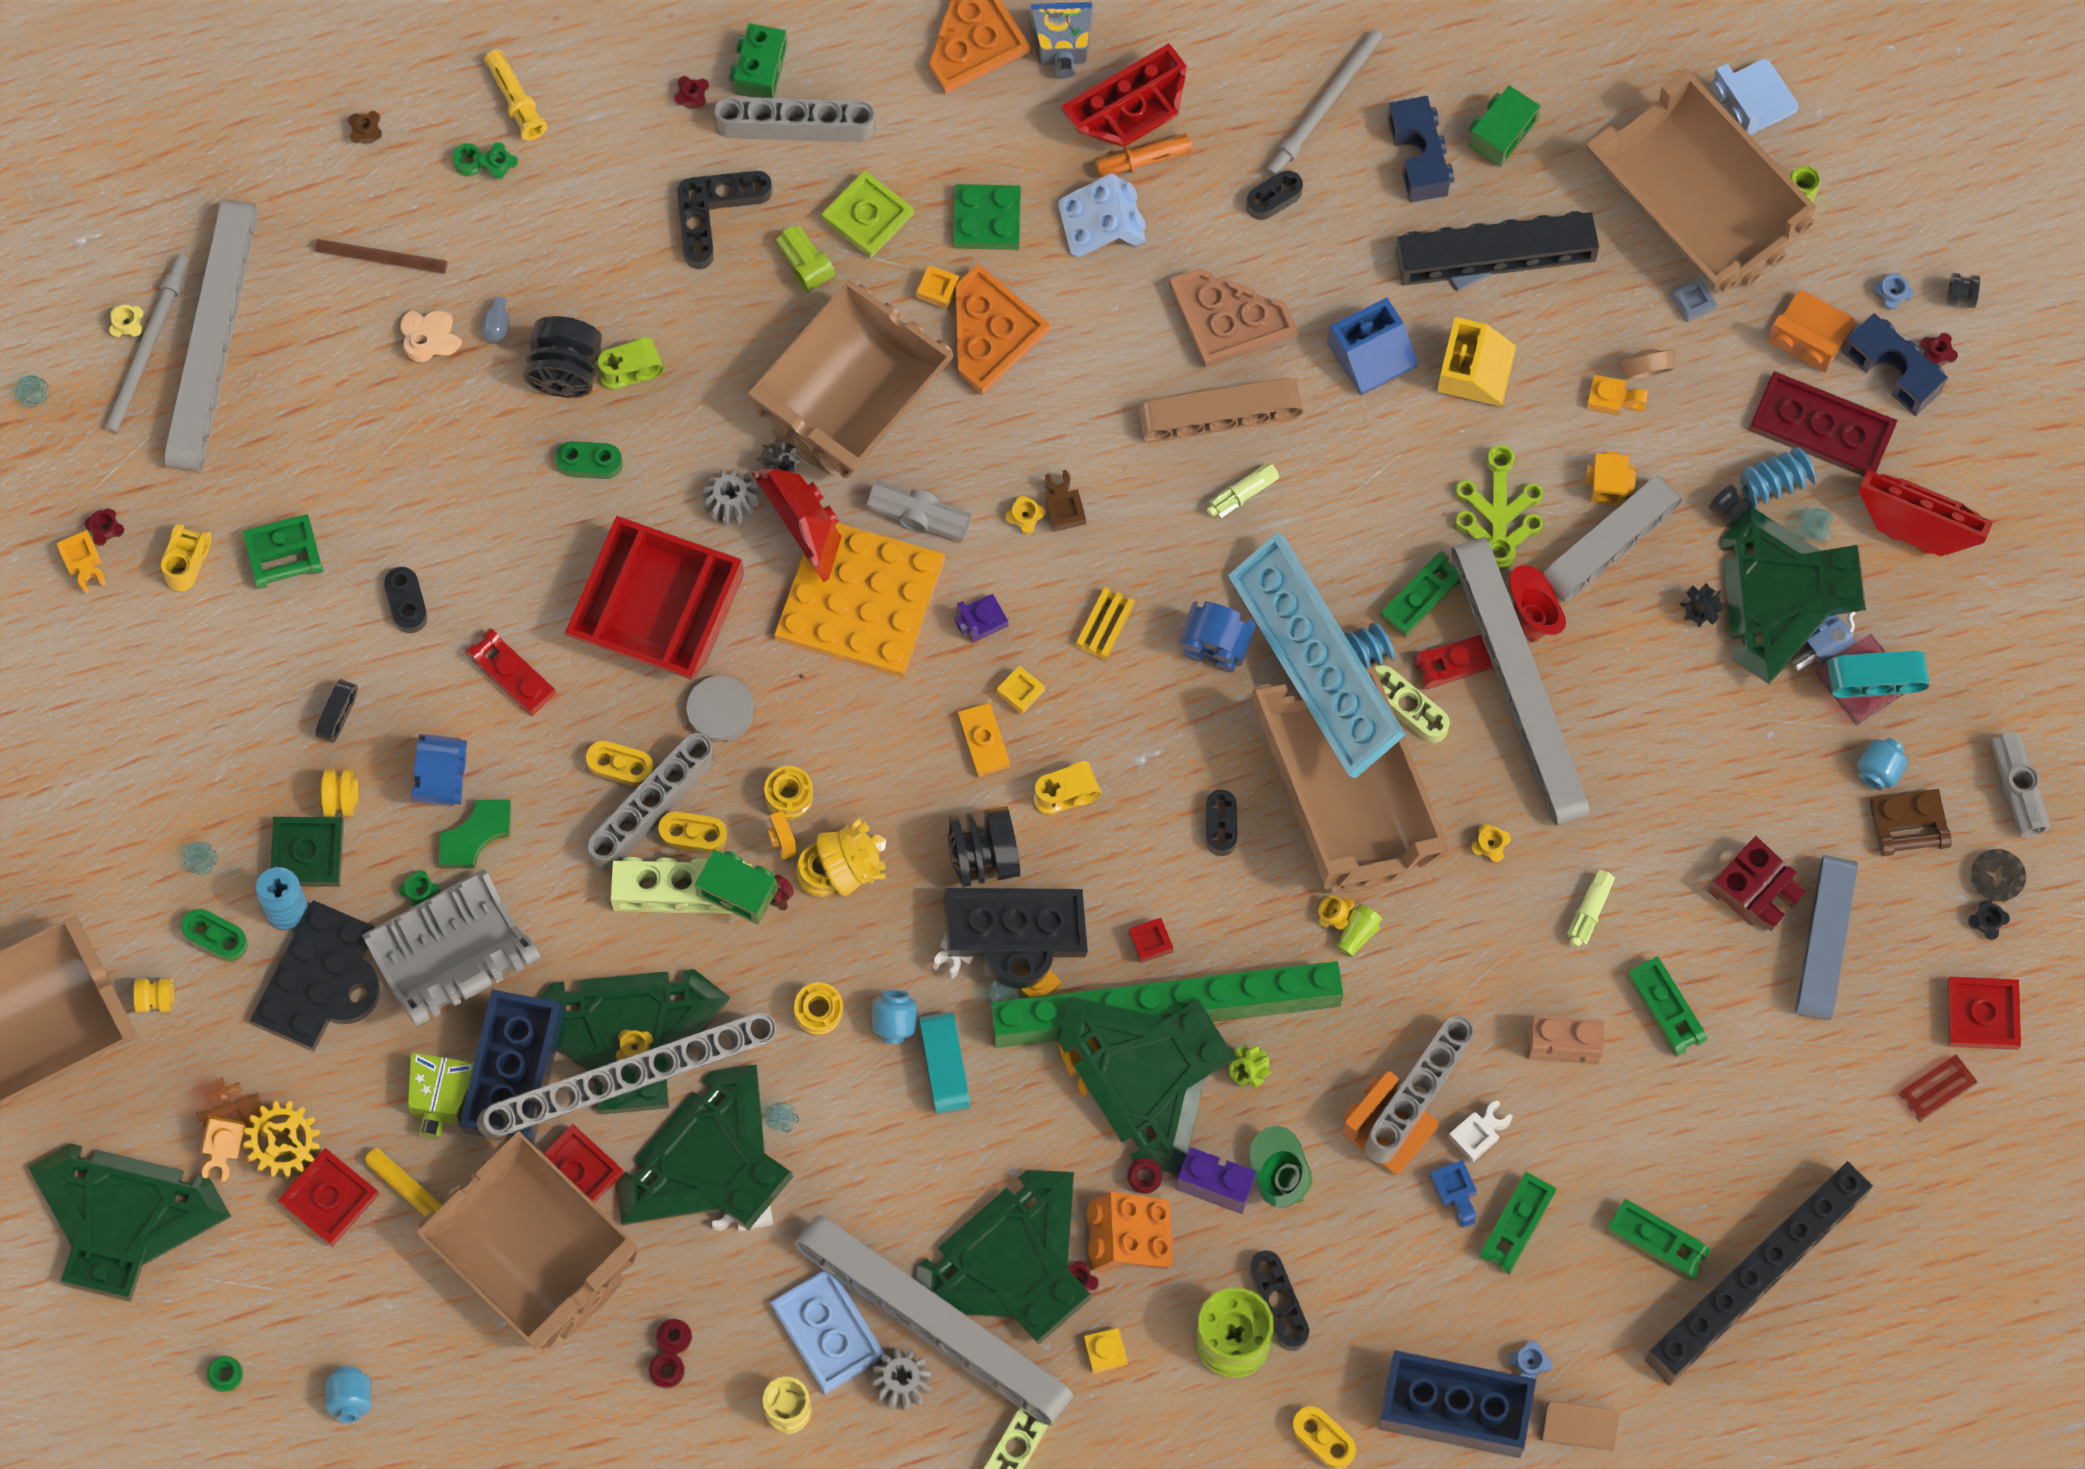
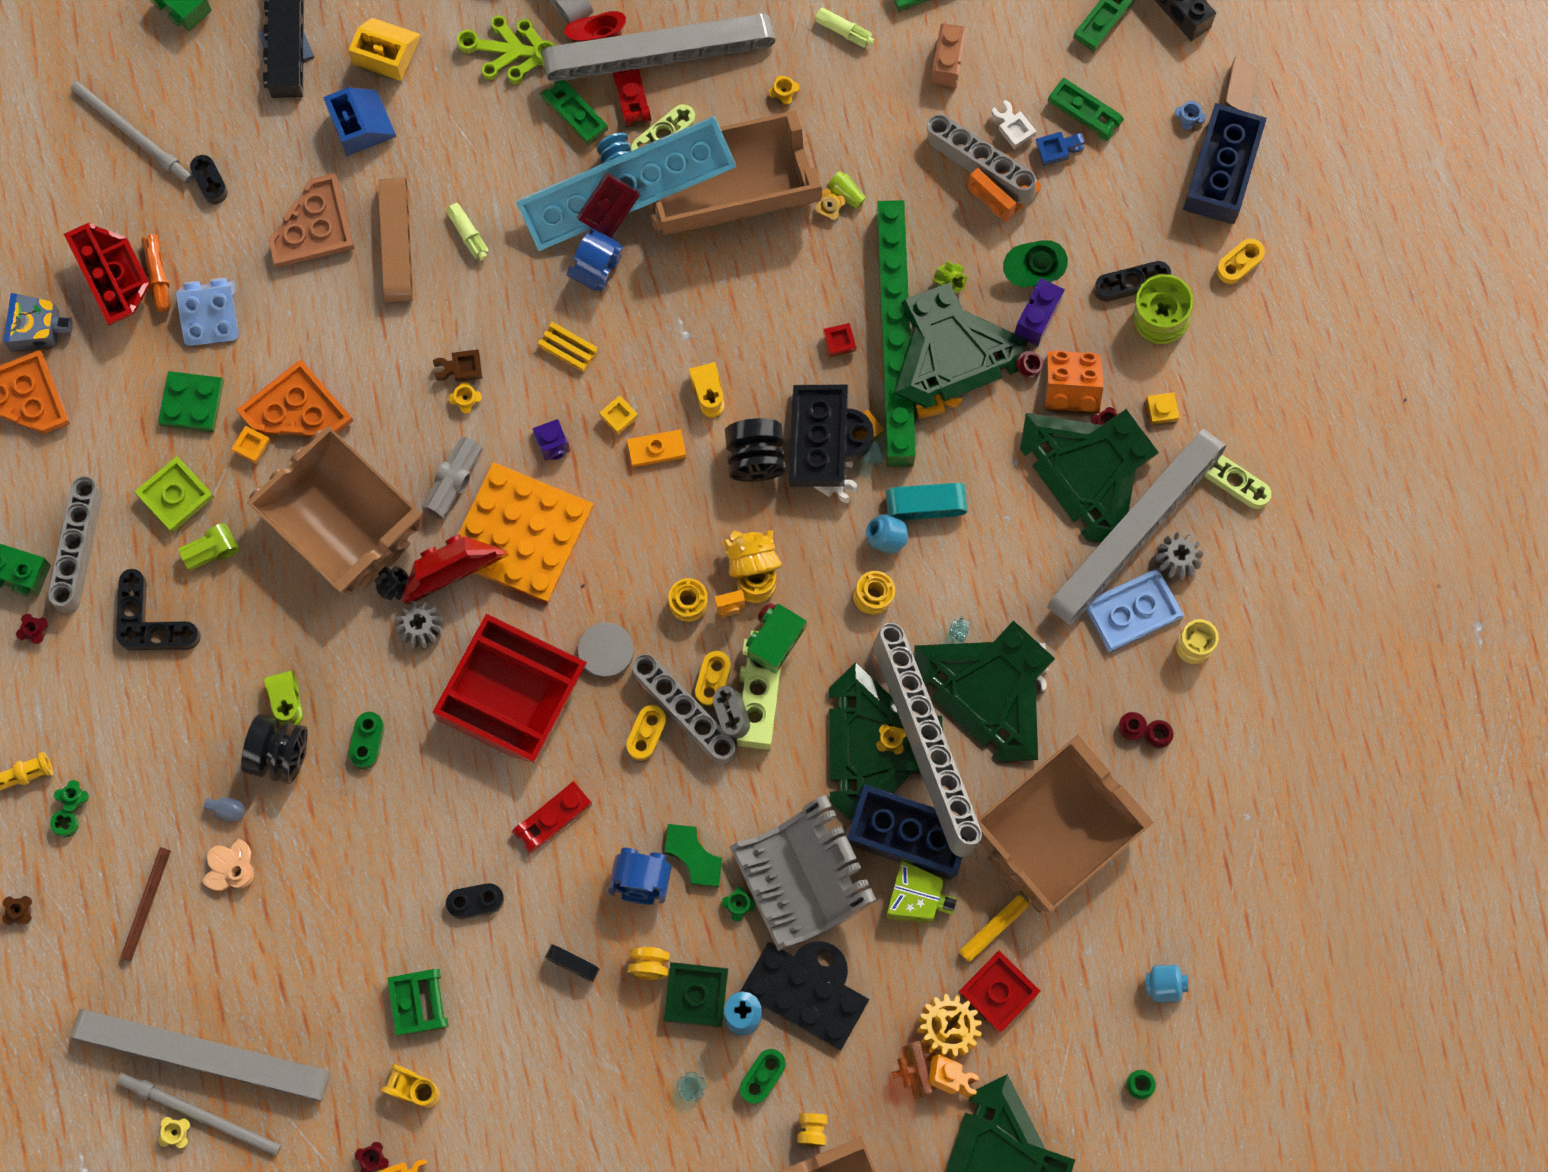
camera: 85 degrees left, 5 degrees up
(584, 1163) = (990, 784): red plate -> none
(645, 849) = (726, 713): none -> dark grey beam
(1213, 823) = (746, 279): black beam -> none
(1282, 635) = (608, 205): none -> dark red plate
(1415, 123) = (166, 63): dark blue arch -> none

